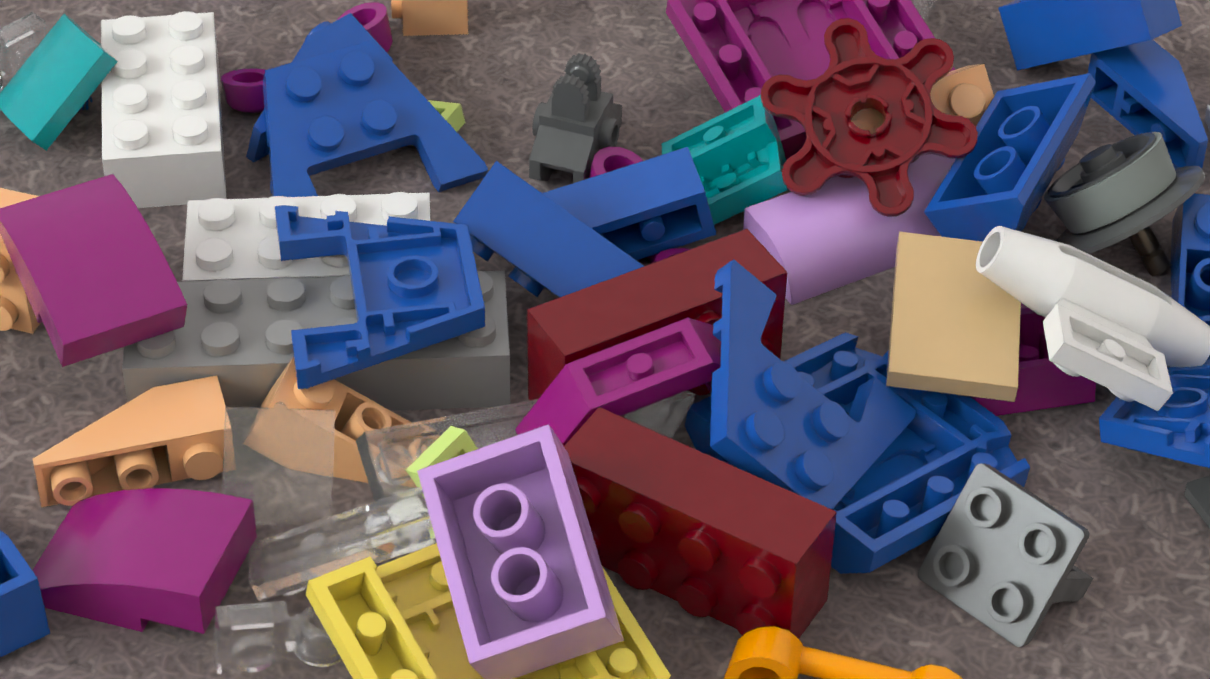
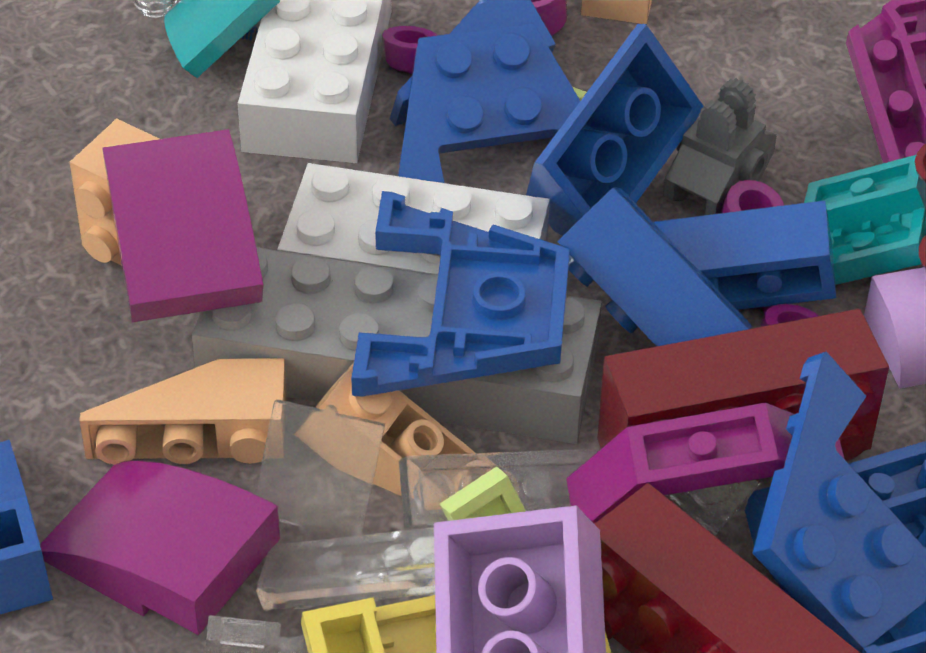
camera: 15 degrees right, 5 degrees up
(478, 120) = (616, 132): none -> blue slope

